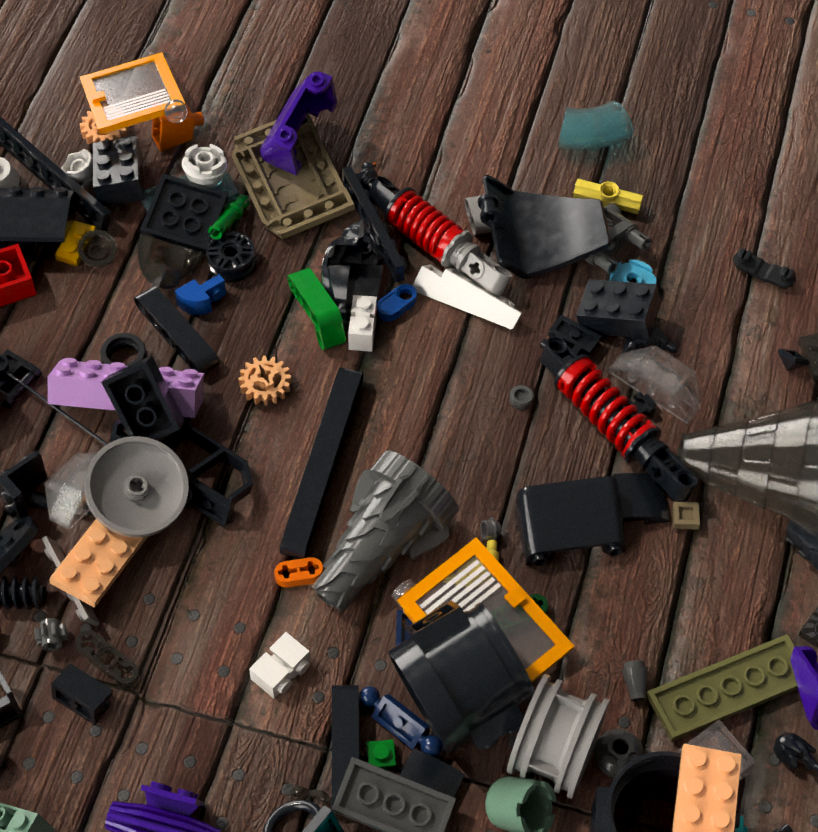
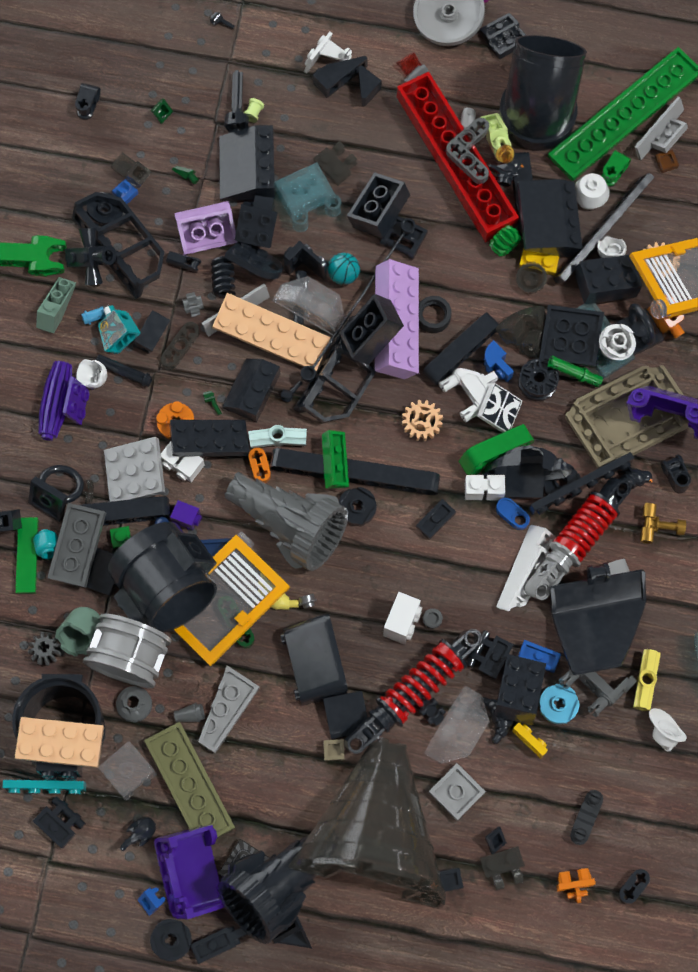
camera: 85 degrees right, 15 degrees up
(40, 778) = (93, 315): none -> dark azure pin
(43, 267) = (505, 241): none -> green gear
(43, 439) = (343, 268): none -> teal piece
(70, 734) = (117, 330): none -> torso
(130, 774) = (91, 373): none -> white hair
(132, 735) = (126, 371): none -> black axle
(136, 486) = (304, 337): light grey dish -> none
(175, 152) = (643, 328): none -> black tile
(188, 570) = (252, 388): none -> black slope
(191, 624) = (209, 397): none -> dark green hand
(204, 529) = (287, 395): none -> black hand
(216, 687) = (171, 411): none -> orange plate
(234, 320) = (474, 386): none -> white connector
(254, 625) = (209, 438): none -> black plate
(263, 296) = (499, 408): none -> tile
(263, 532) = (265, 437): none -> light aqua piece
(289, 725) = (134, 470): none -> light grey plate
(308, 474) = (335, 459): none -> green slope
(360, 665) = (186, 515): none -> dark purple brick
(363, 451) = (368, 505): none -> black plate
(369, 141) = (674, 470): none -> black piece
(396, 379) = (436, 519): none -> black plate
(425, 169) = (652, 524): none -> pearl gold bar
(524, 420) = (401, 618): none -> white brick
(572, 294) = (538, 653): none -> blue plate
(626, 632) = (229, 704): none -> light grey wing
(669, 186) = (665, 730): none -> white piece
(680, 308) = (537, 745): none -> yellow plate
(736, 390) = (457, 792): none -> light grey plate

